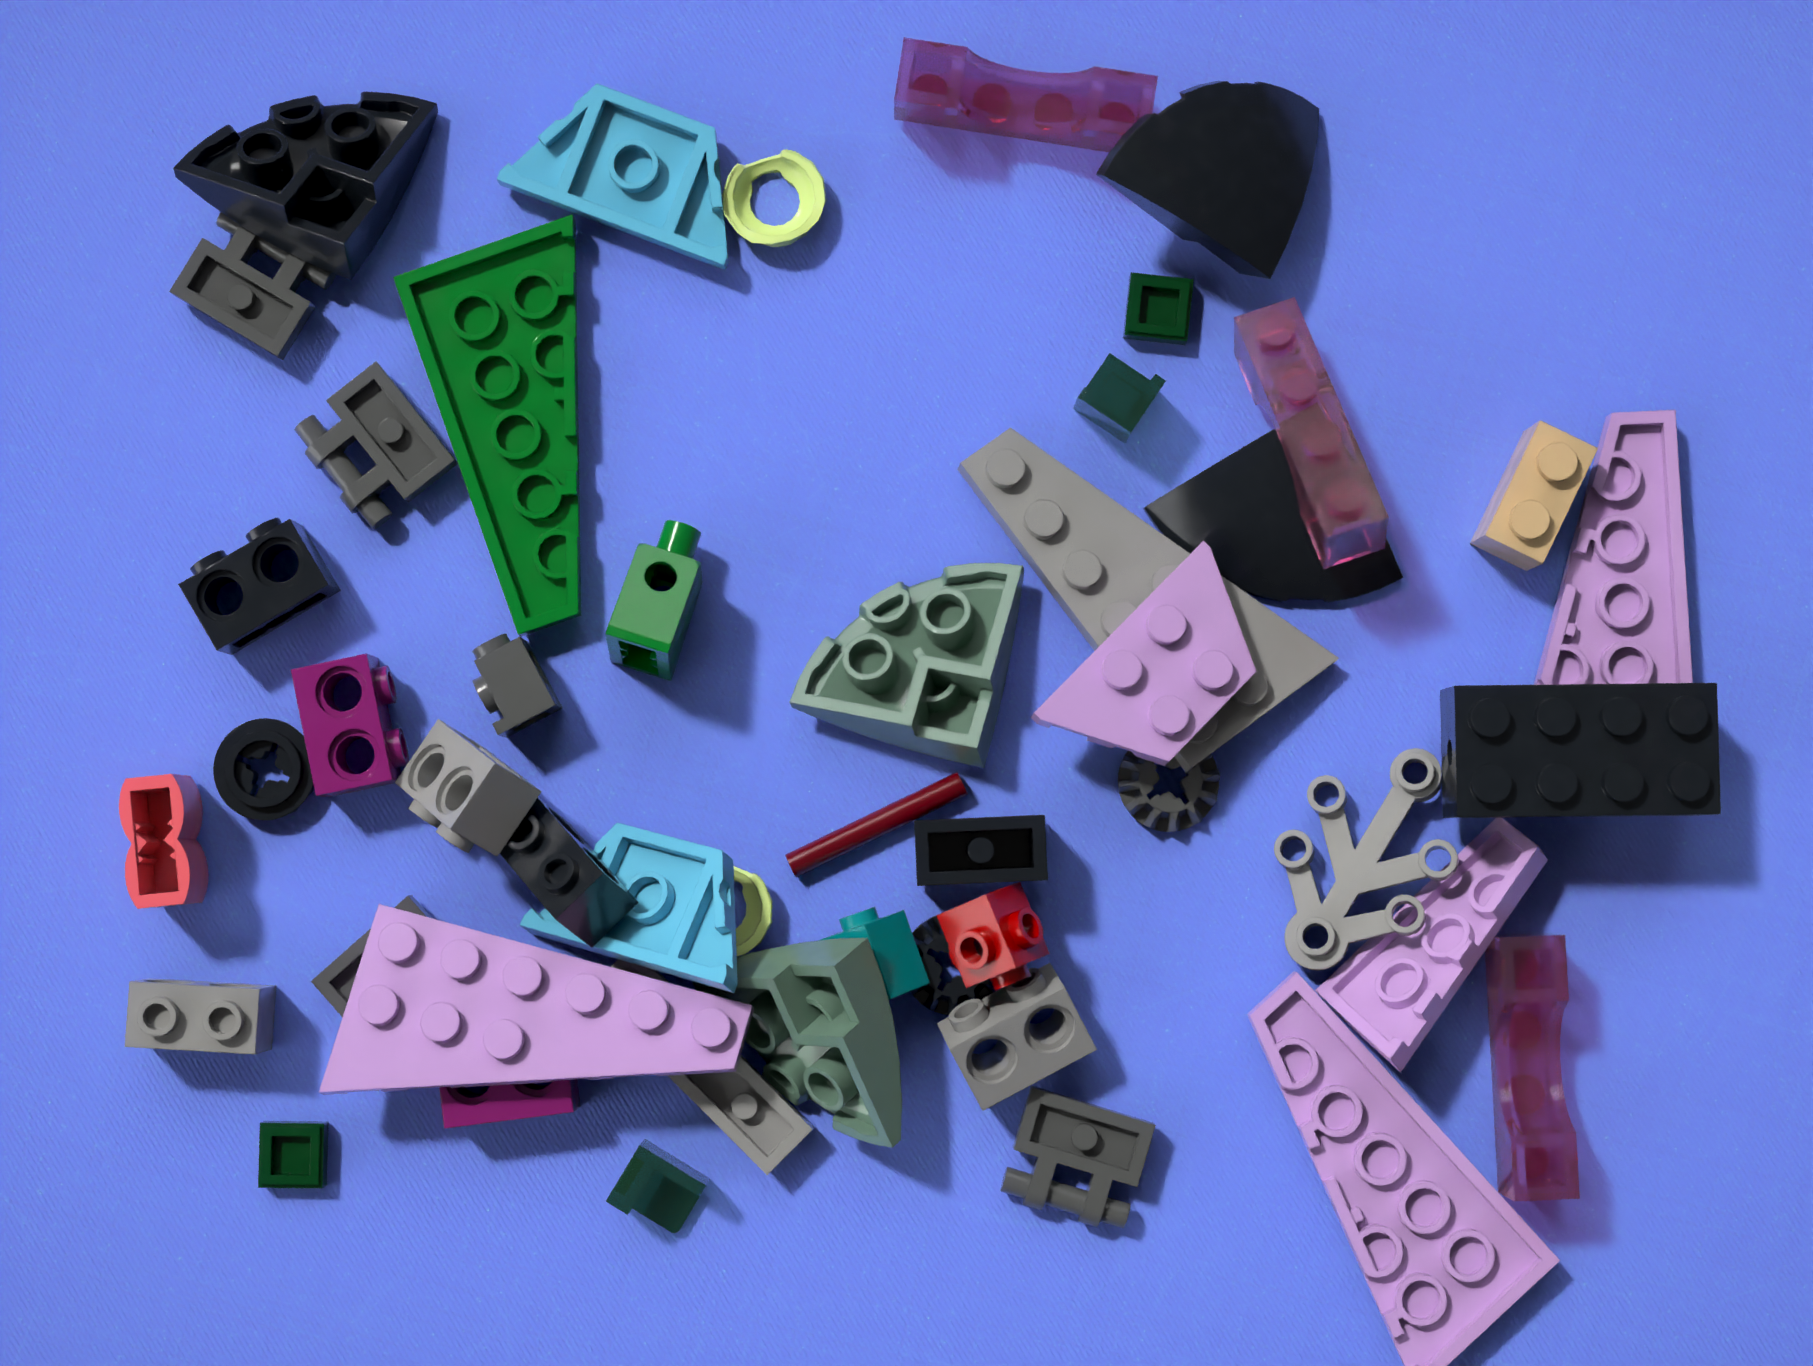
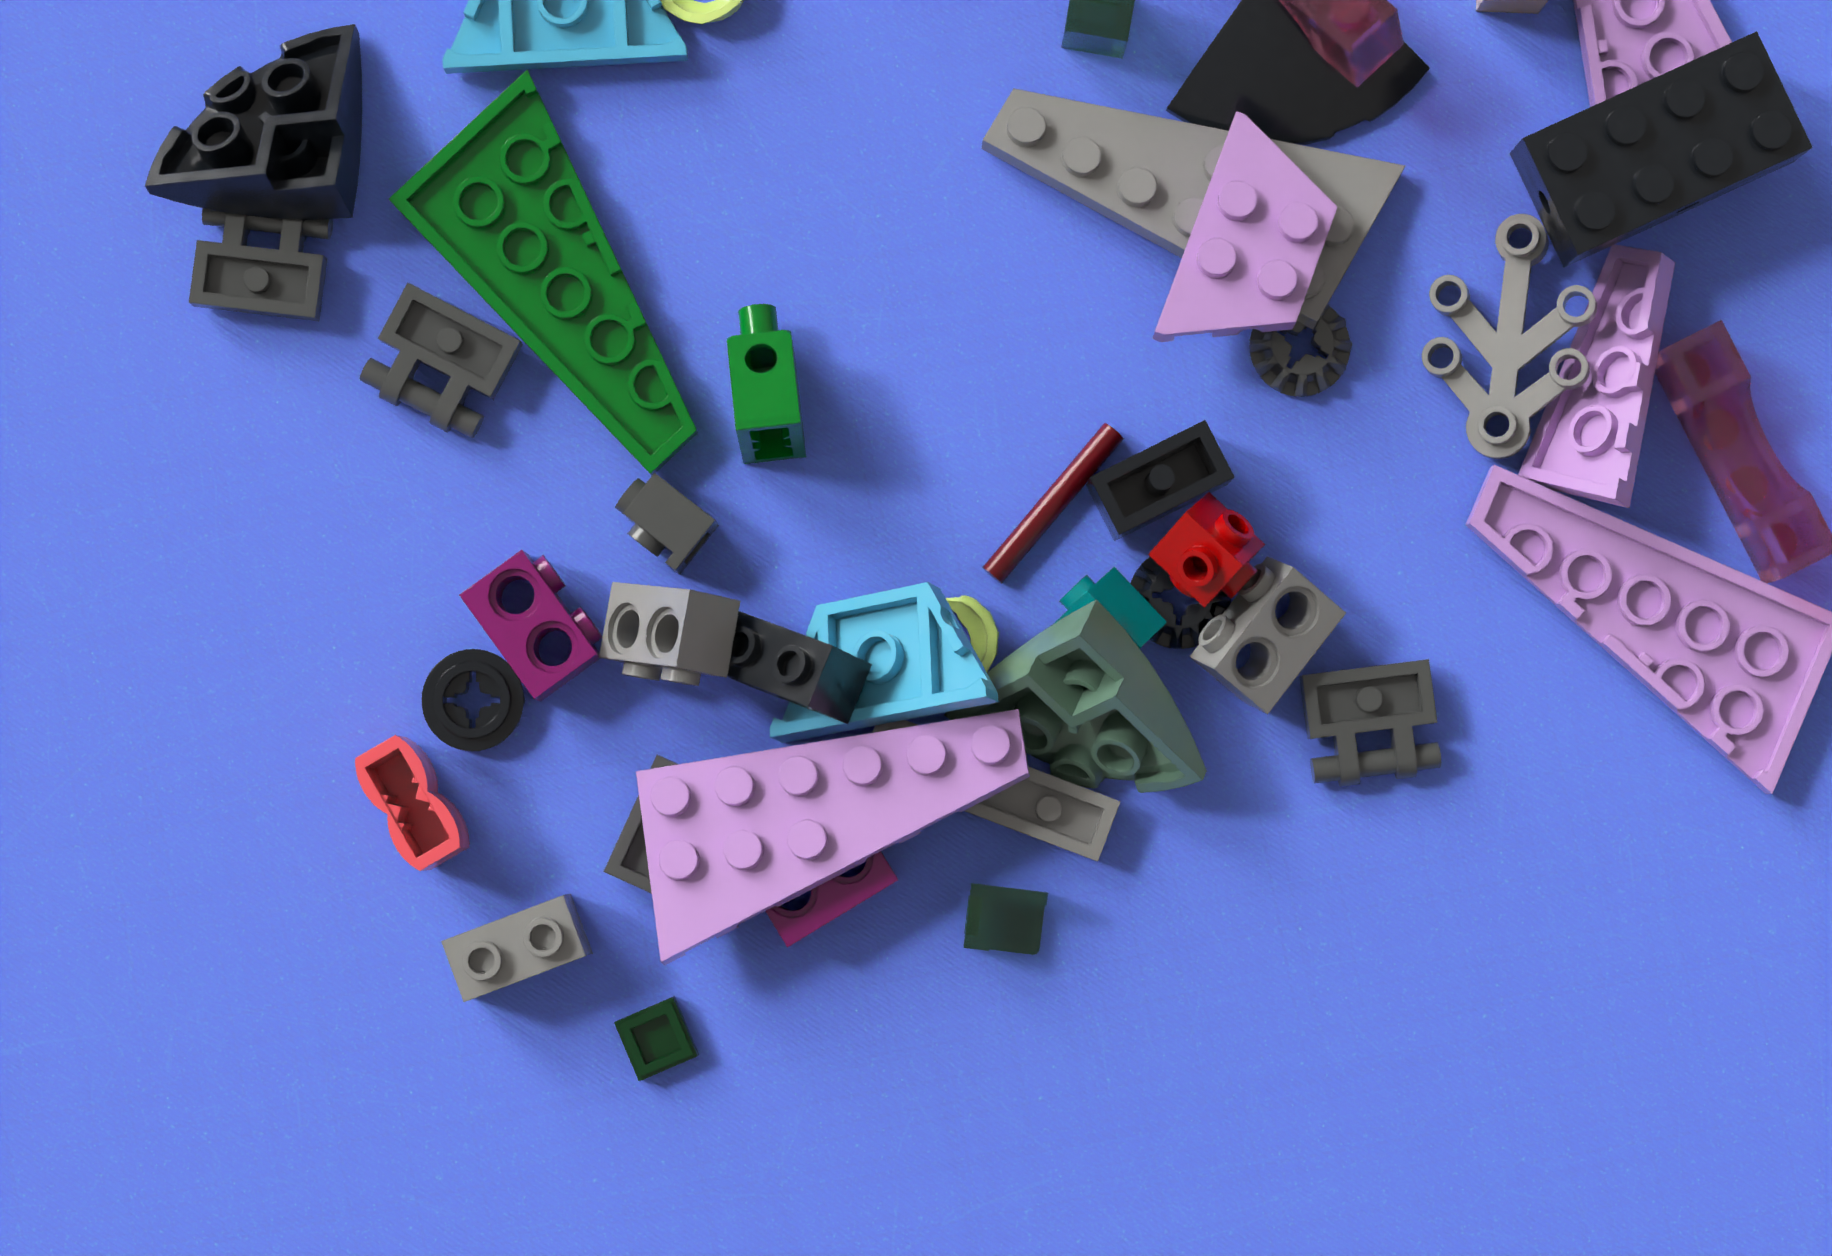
camera: 25 degrees left, 0 degrees up
(265, 601) = (406, 544): black brick -> none
(921, 663) = (1029, 338): sand green brick -> none

